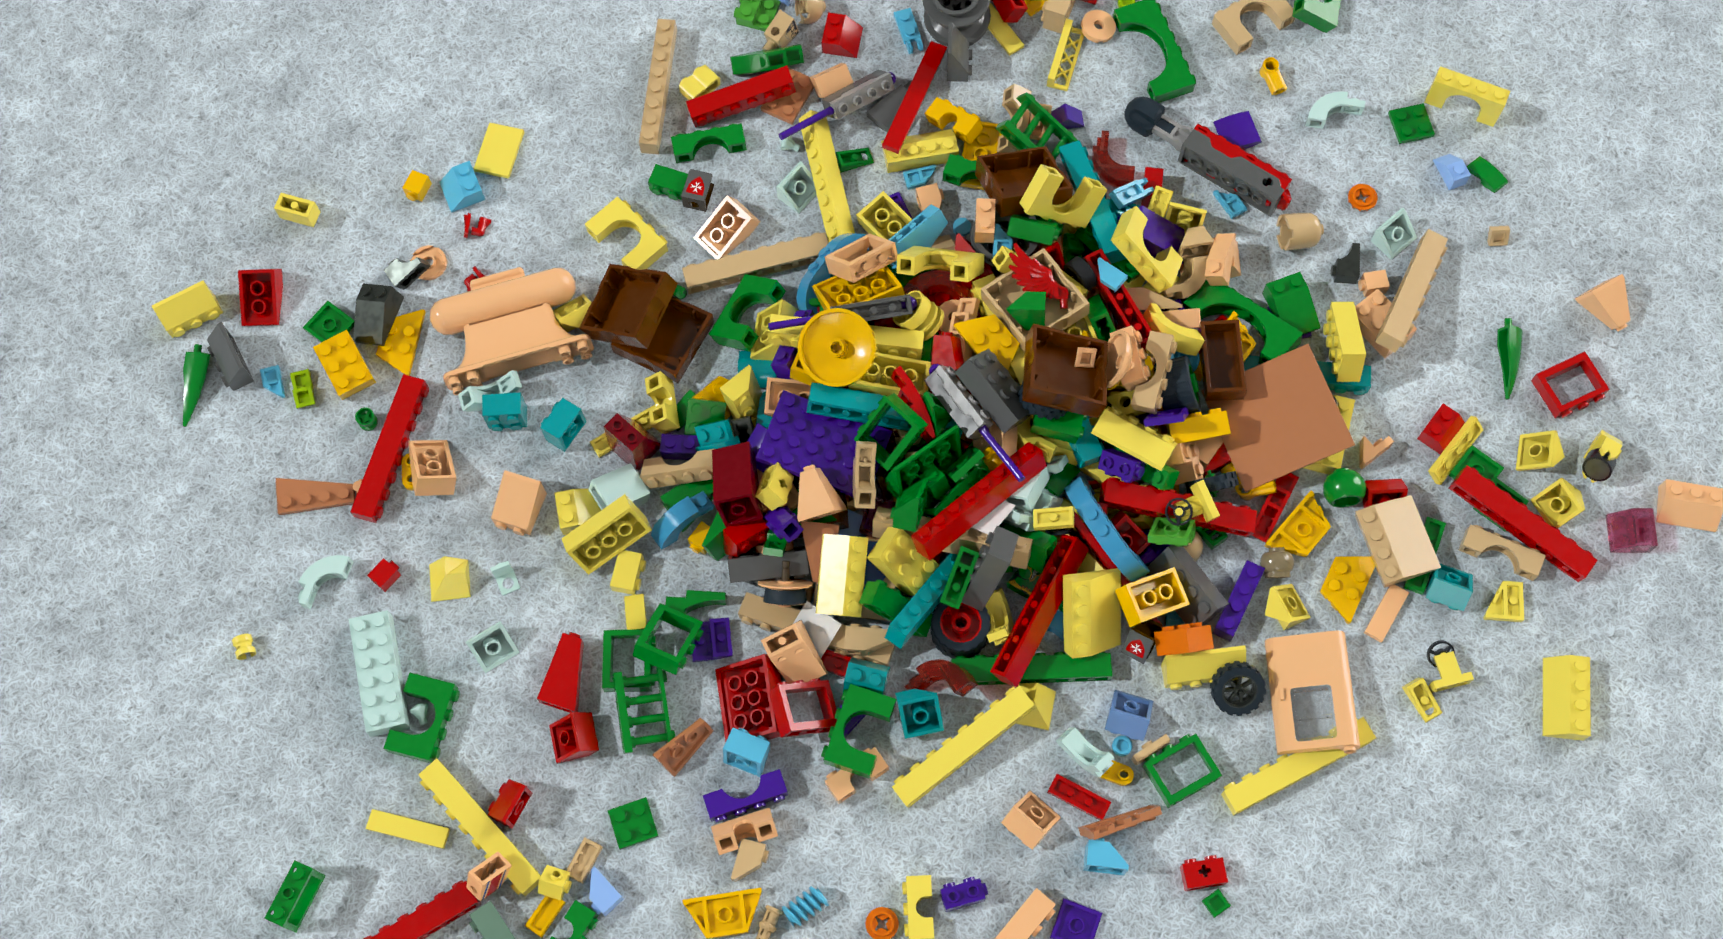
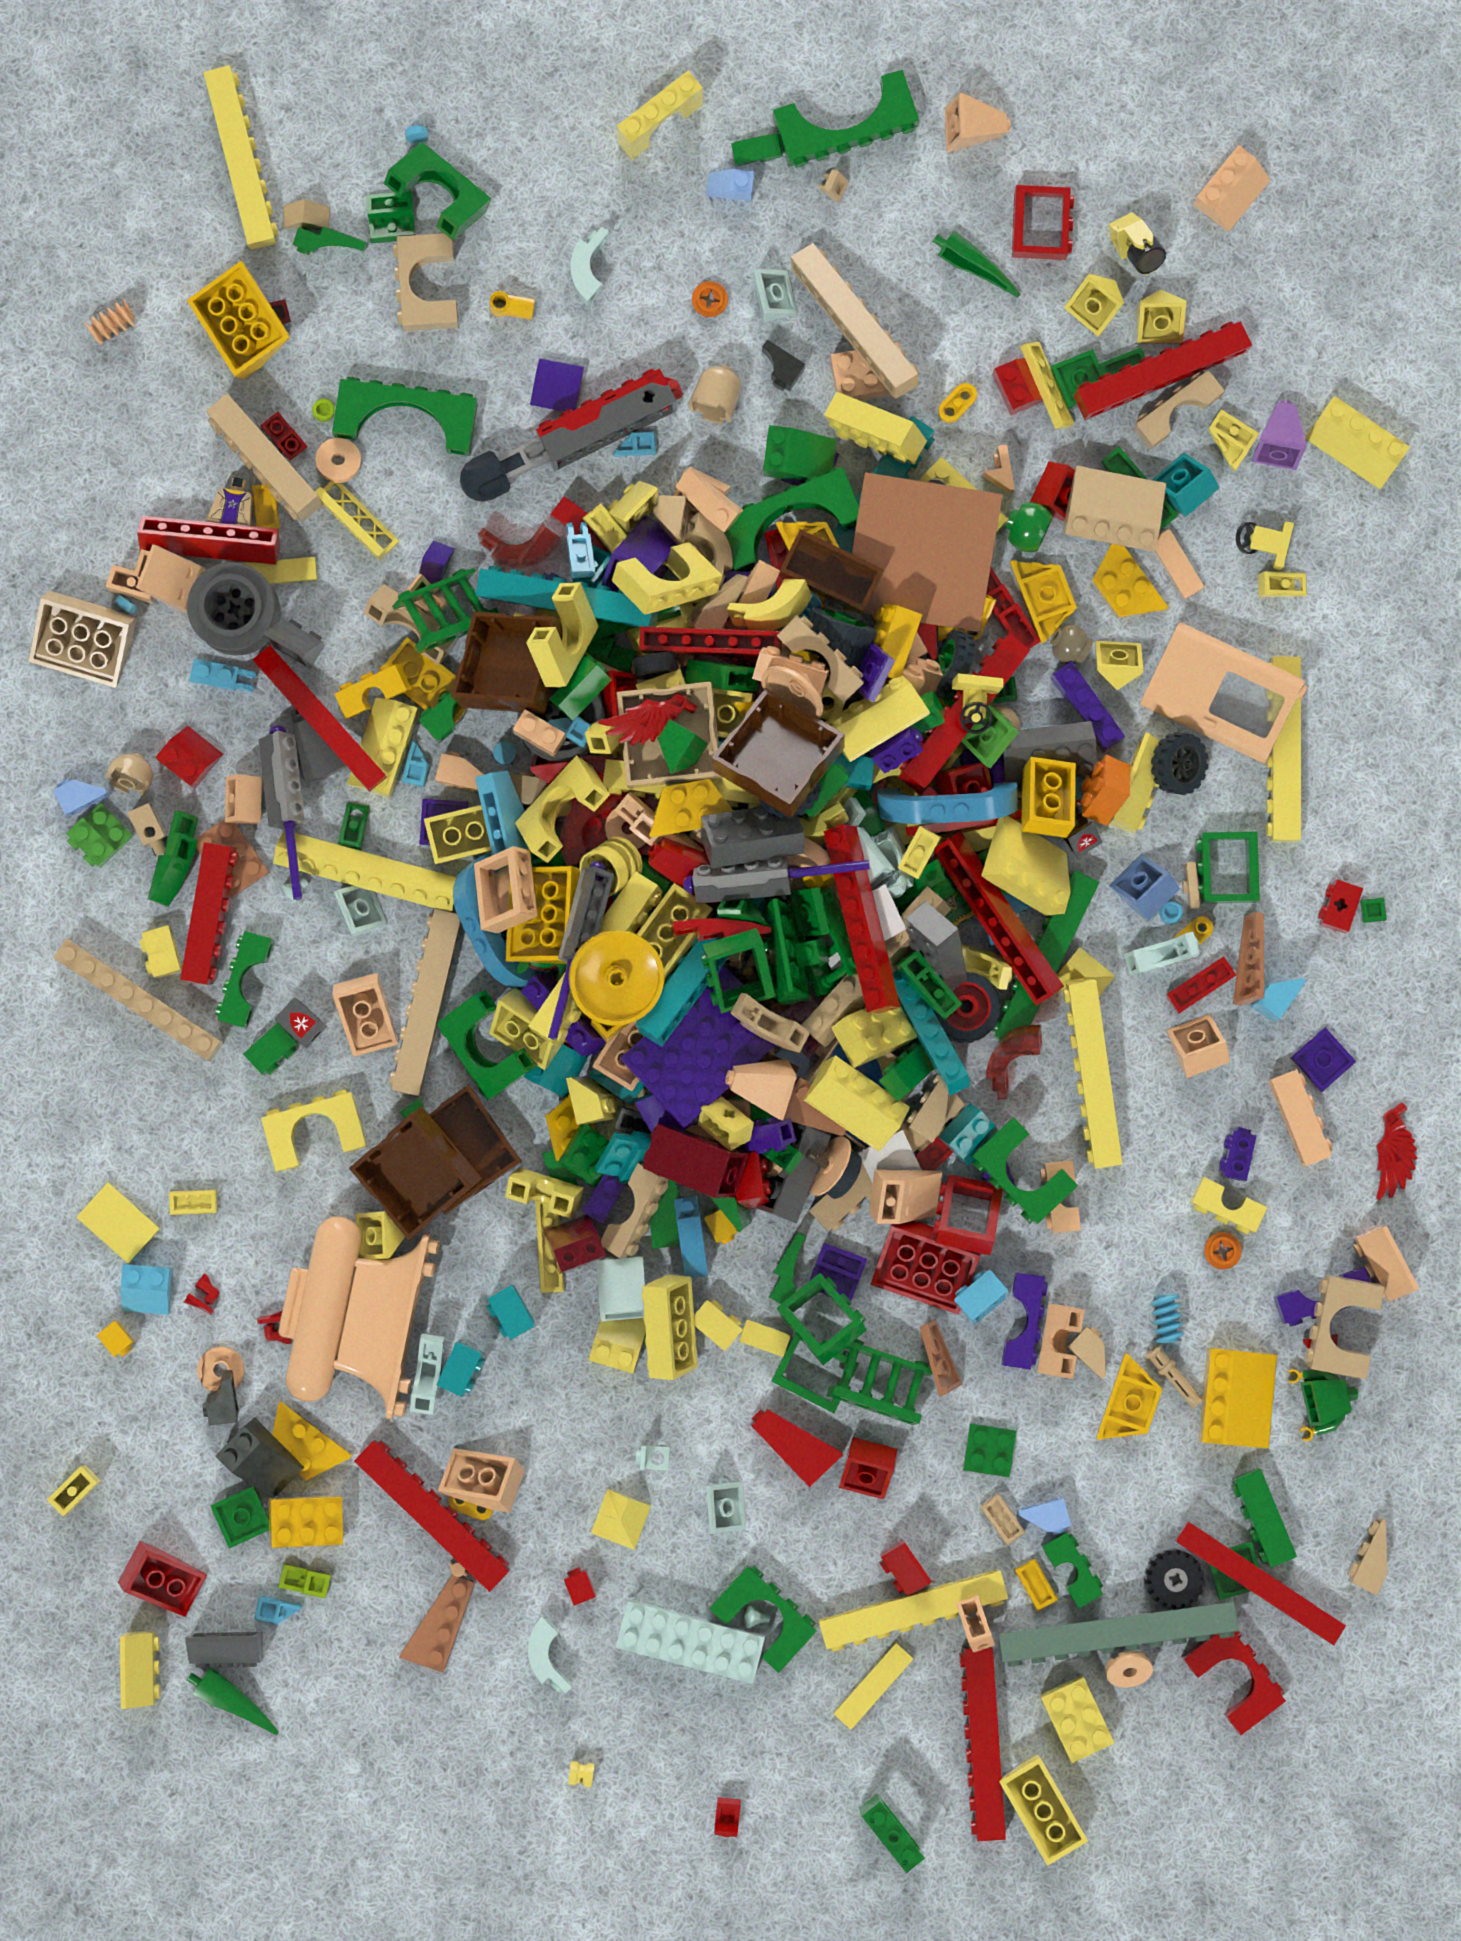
camera: 70 degrees left, 15 degrees up
(256, 769) = (727, 1817): none -> red bracket
(364, 415) = (379, 1527): green wheel -> none
(518, 503) = (578, 1406): light nougat slope -> none
(537, 187) = (193, 1202): none -> light yellow plate
(554, 882) = (1012, 1560): light yellow brick -> none
(910, 506) = (828, 994): green slope -> none
(919, 712) = (1034, 1100): teal slope -> none
(1085, 357) = (770, 721): light nougat slope -> none
(1110, 275) = (680, 637): medium azure tile -> none
(1372, 281) = (817, 351): light nougat brick -> none
(1400, 395) = (956, 403): none -> yellow plate
(1411, 123) = (650, 190): green plate -> none
(1516, 203) = (808, 142): none -> green arch
(1529, 635) = (1282, 439): none -> medium lavender slope
(1632, 531) = (1227, 266): clear pink slope -> none

